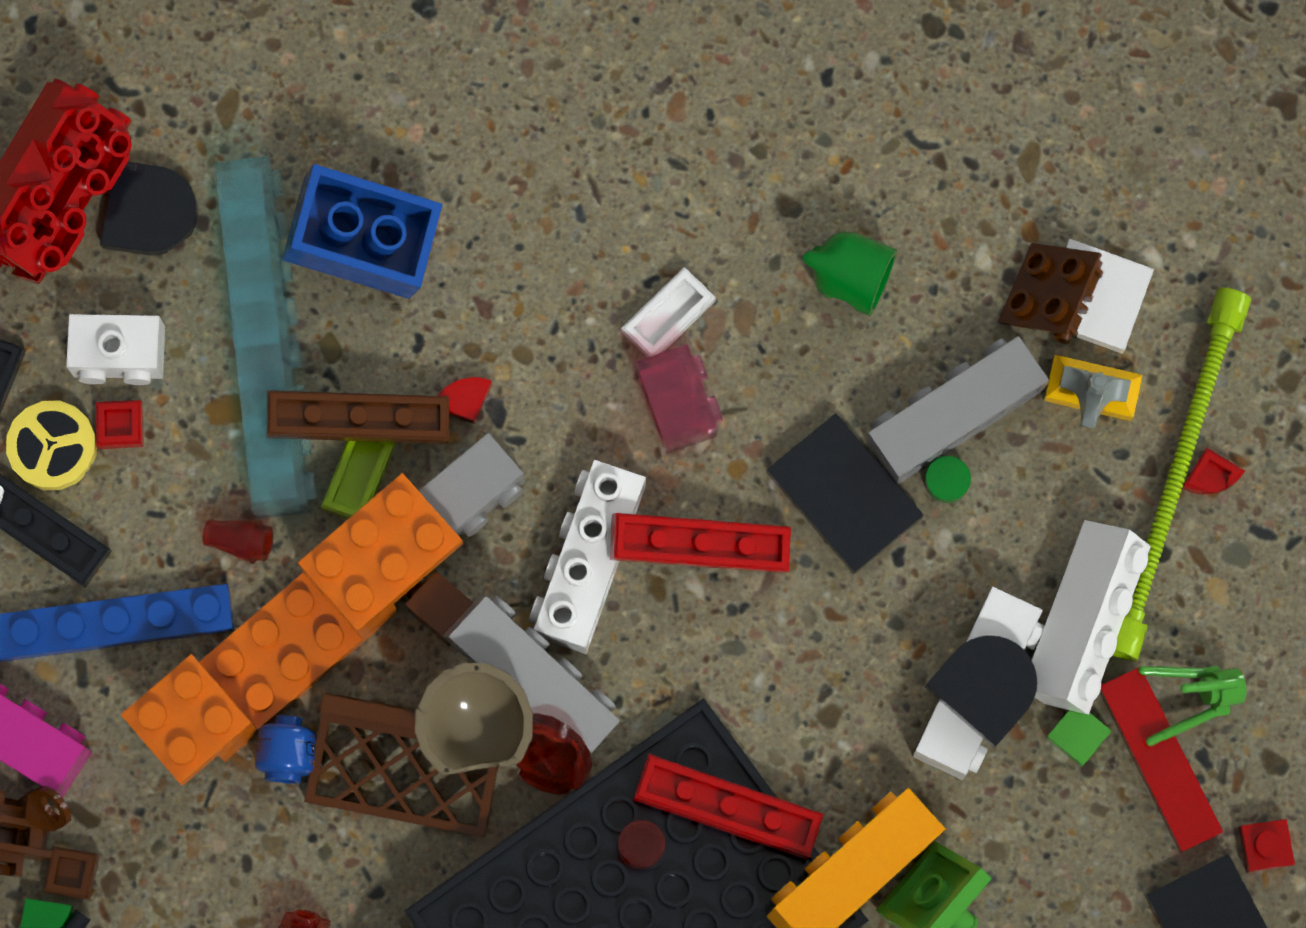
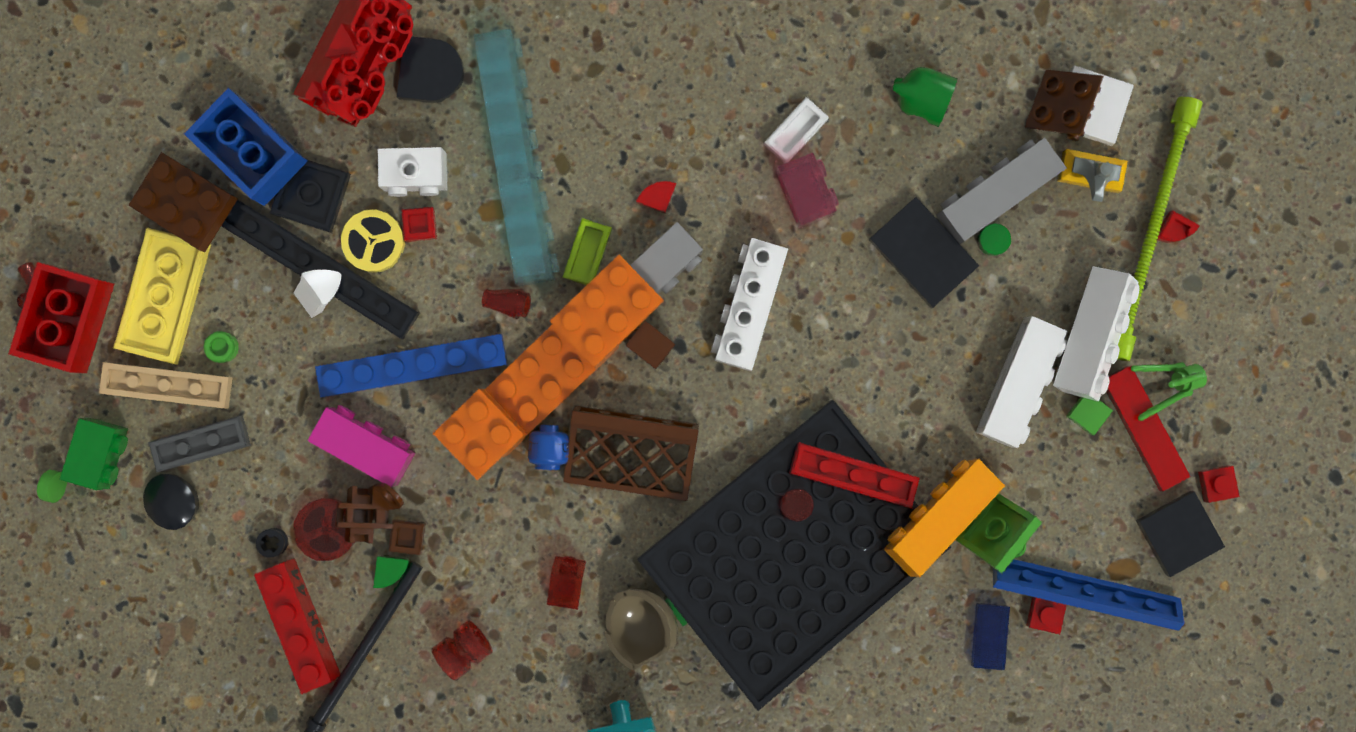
camera: 10 degrees left, 10 degrees up
(357, 417) = (584, 214): reddish brown tile -> none
(362, 231) = (580, 80): blue brick -> none
(473, 719) = (680, 429): dark tan cylinder -> none
(552, 687) = (715, 392): light grey brick -> none
(555, 757) = (729, 444): clear red tile -> none
(700, 543) = (826, 292): red tile -> none
(987, 685) = (1032, 386): black tile -> none

